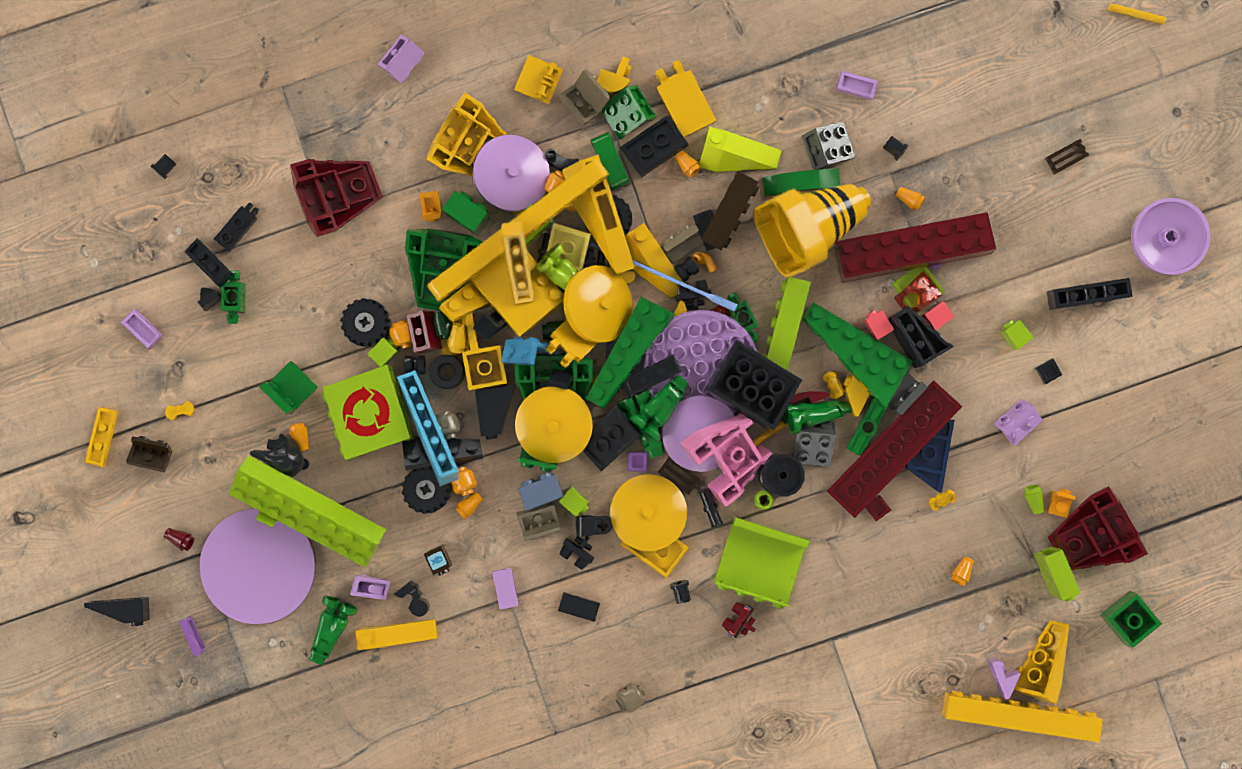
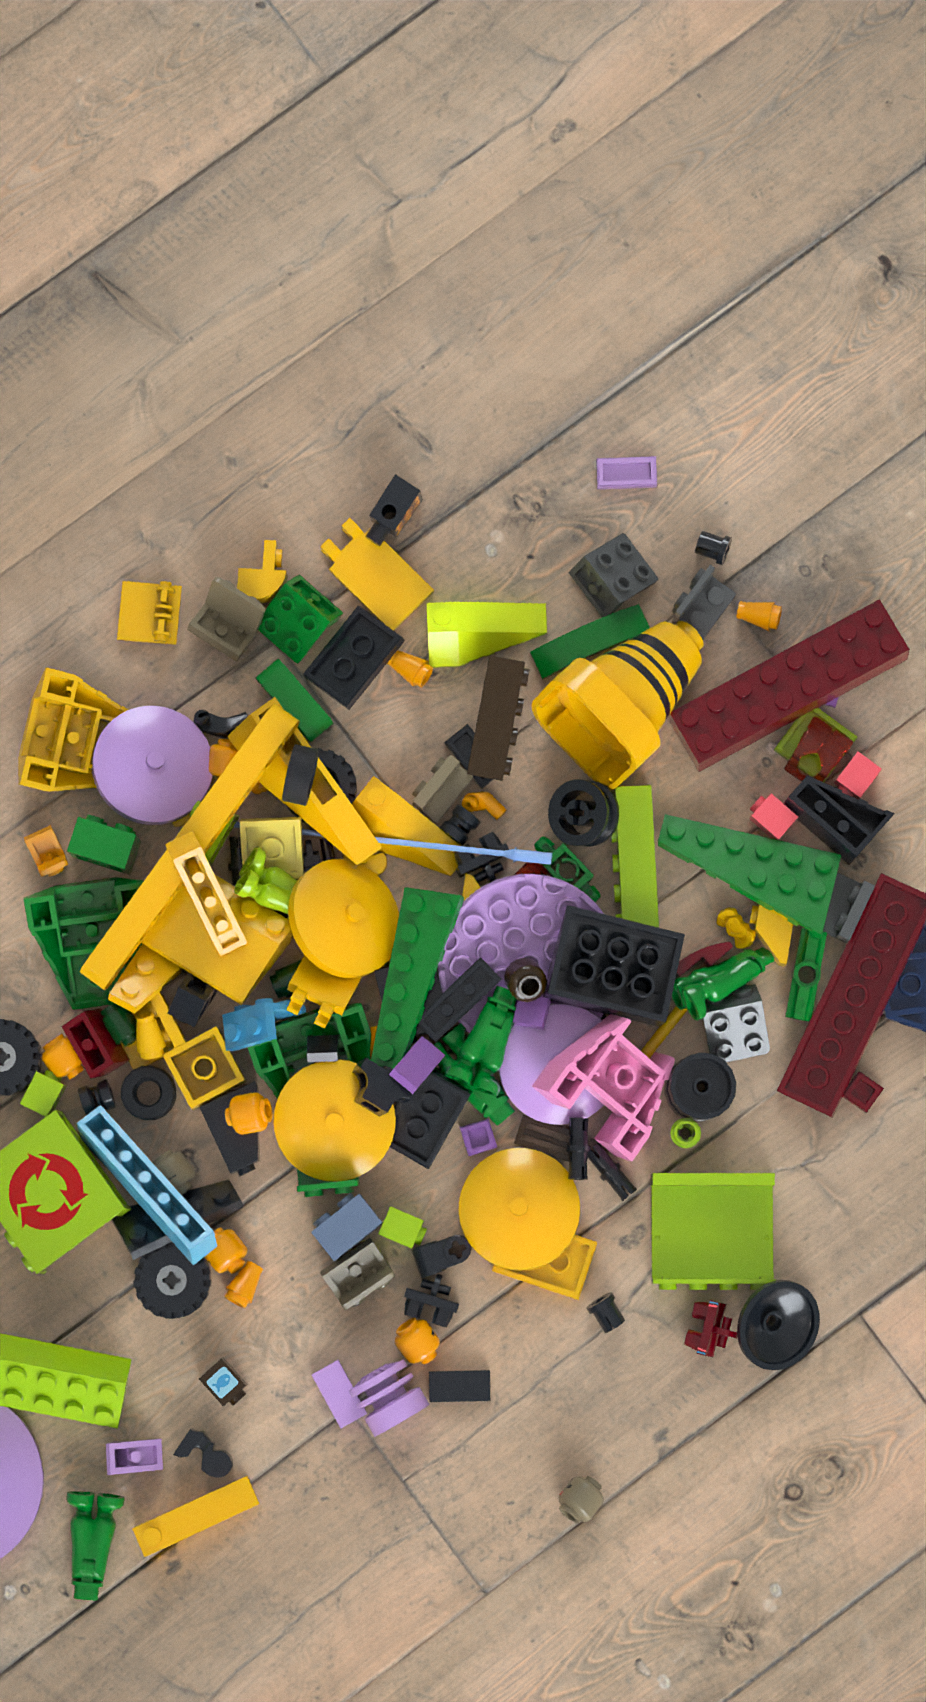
camera: 15 degrees left, 5 degrees down
(503, 404) = (249, 1113): none -> light orange head
(534, 602) = (388, 1397): none -> lavender wheel
(561, 572) = (417, 1341): none -> light orange head
(587, 414) = (378, 1088): none -> black brick
(598, 207) = (300, 775): none -> black tyre
(614, 407) = (417, 1064): none -> medium lavender tile
(694, 397) = (532, 1013): none -> medium lavender tile
(695, 488) = (578, 1148): none -> black pin
(696, 377) = (525, 980): none -> dark brown head
(713, 56) = (397, 498): none -> black torso
(754, 281) = (568, 811): none -> black wheel
(782, 632) = (788, 1332): none -> black dish
(879, 180) = (704, 602): none -> dark grey bracket

